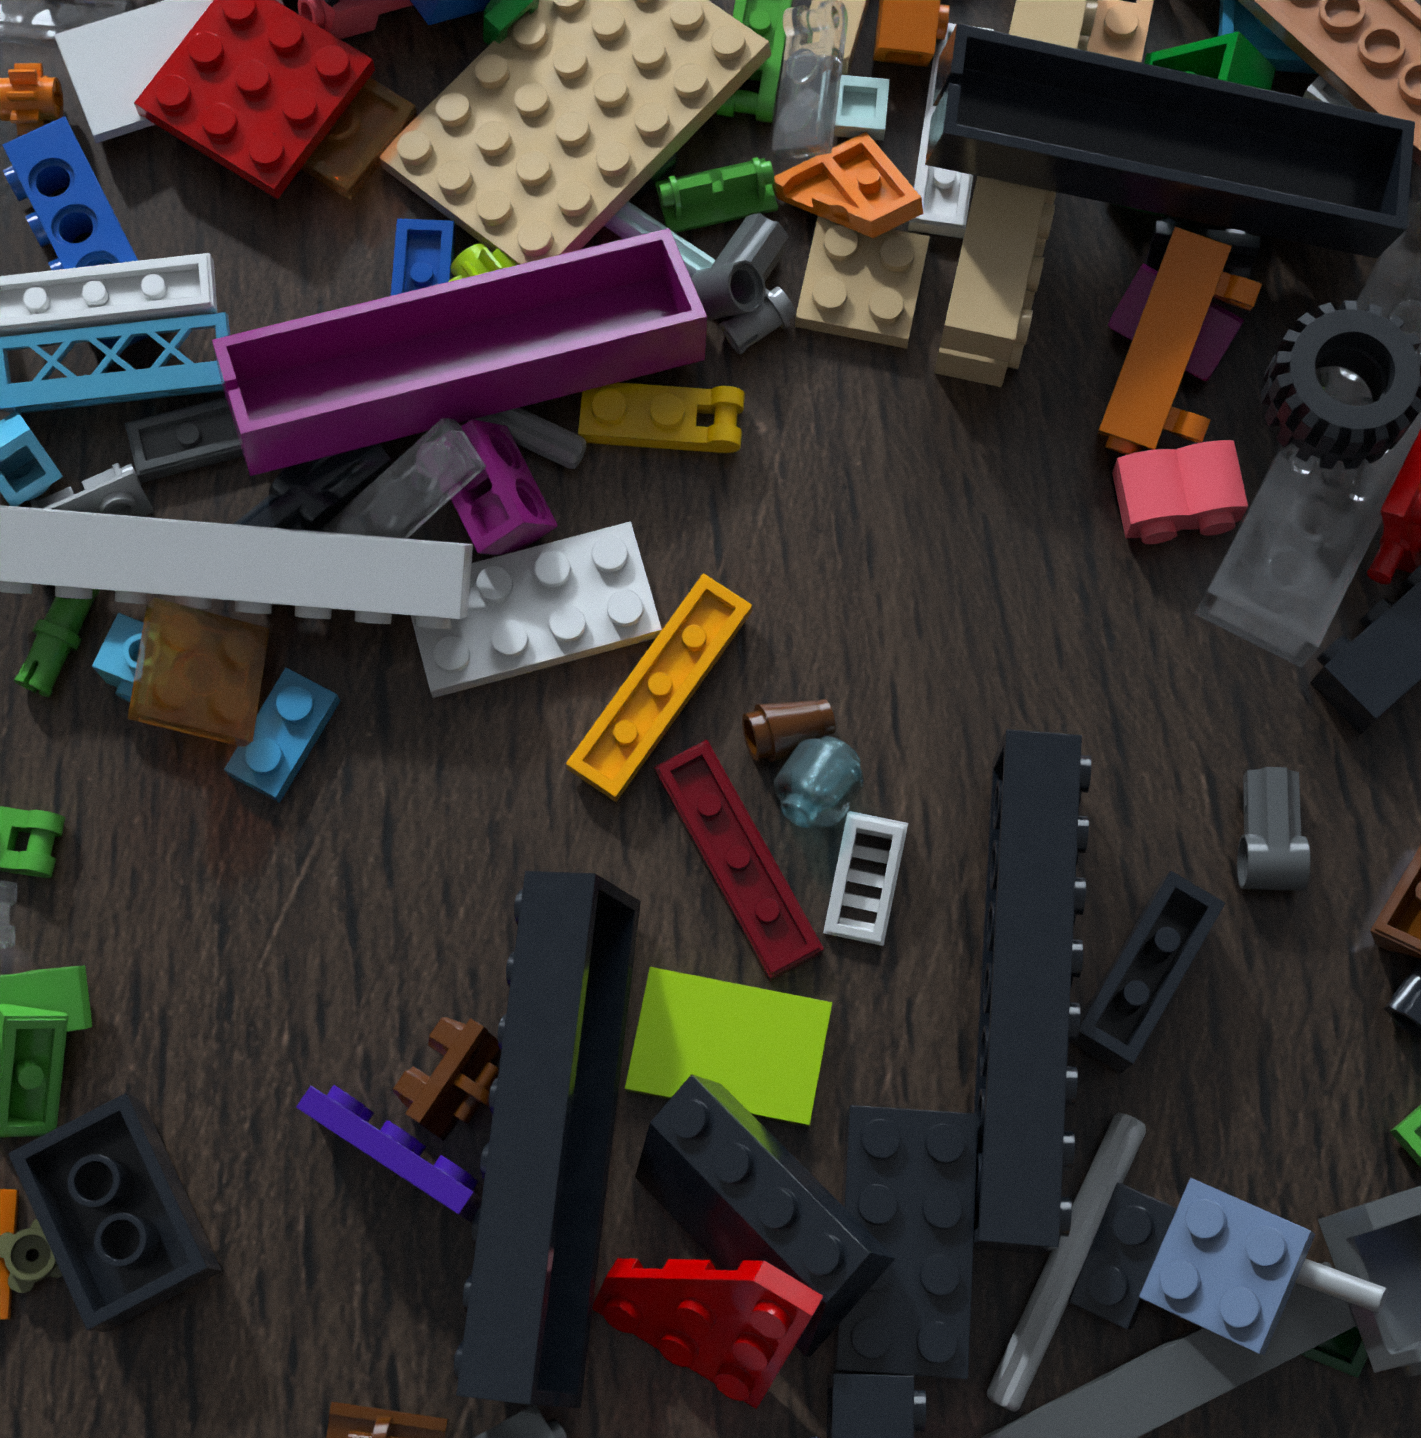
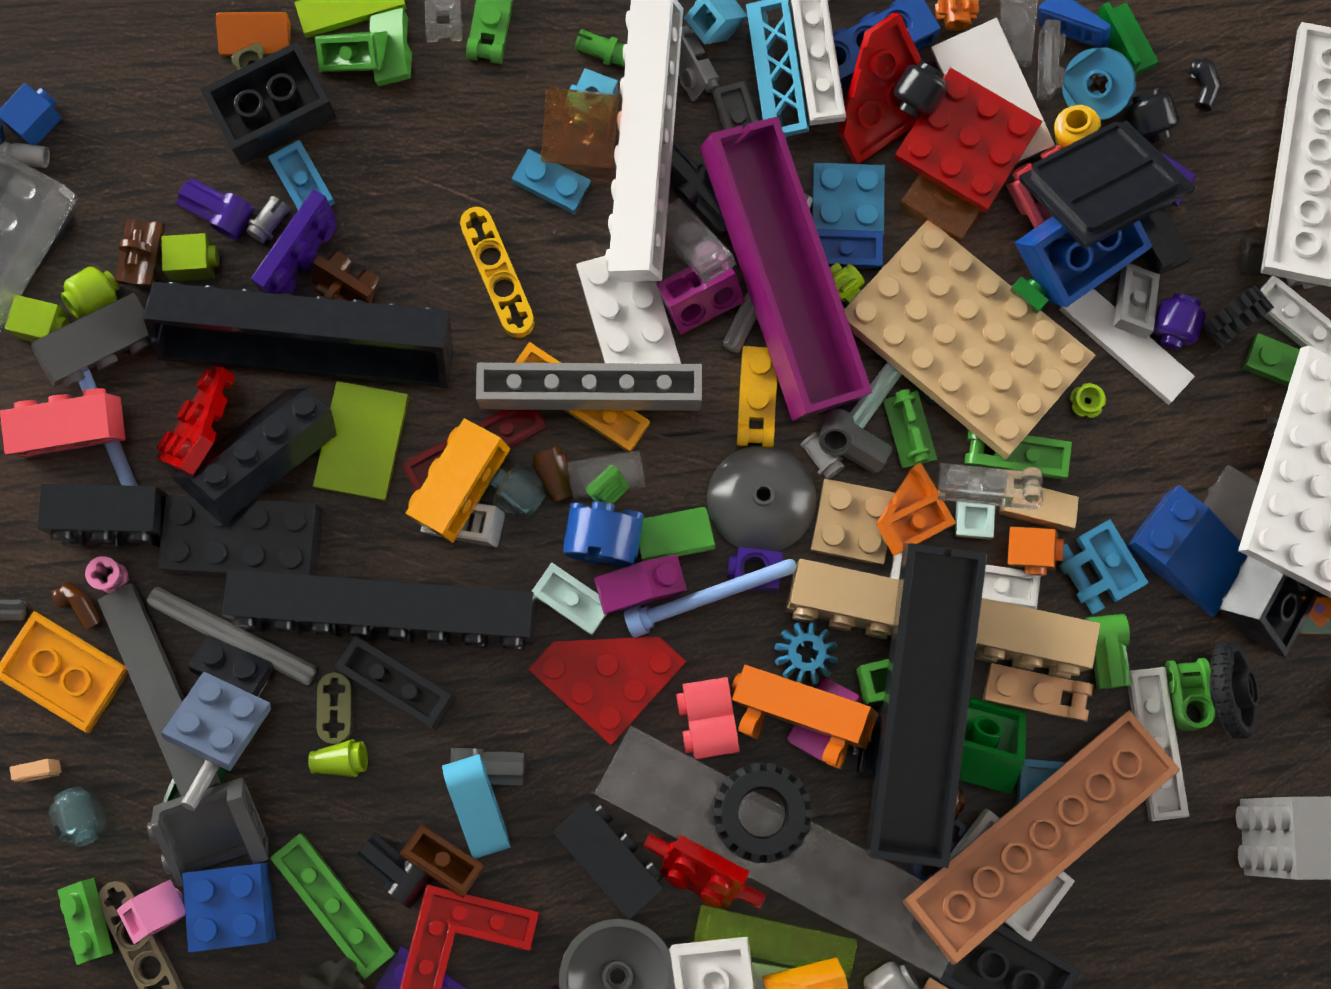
camera: 85 degrees right, 5 degrees up
(165, 199) = (871, 105): none -> red plate
(172, 139) = (920, 89): none -> black head
(257, 1158) = (298, 173): none -> dark azure plate
(312, 1295) = (224, 213): none -> dark purple piece
(330, 1217) = (267, 220): none -> light grey pin
(333, 264) = (848, 196): none -> dark azure plate
(393, 1353) = (189, 257): none -> lime brick
(442, 832) = (494, 273): none -> yellow beam
(654, 653) = (589, 386): none -> light grey brick
(787, 645) = (587, 470): none -> clear plate
(805, 872) = (457, 480): none -> light orange brick
(817, 629) = (608, 486): none -> bright green slope
(819, 447) = (756, 523): none -> dark grey dish
(890, 539) = (676, 533): none -> bright green slope
(896, 639) = (603, 535): none -> blue brick
(946, 395) = (764, 557): none -> dark purple brick
(974, 584) = (640, 584): none -> magenta slope
(994, 699) = (570, 598): none -> light aqua plate
(1024, 588) = (640, 619): none -> light blue piece
(1077, 328) = (816, 647): none -> dark azure gear
(1115, 240) = (872, 681): none -> bright green brick
(1118, 647) = (608, 678): none -> red plate
(1184, 1097) = (344, 710): none -> olive beam
(1269, 1070) = (341, 759): none -> lime cone
(1342, 835) = (476, 806): none -> medium azure beam

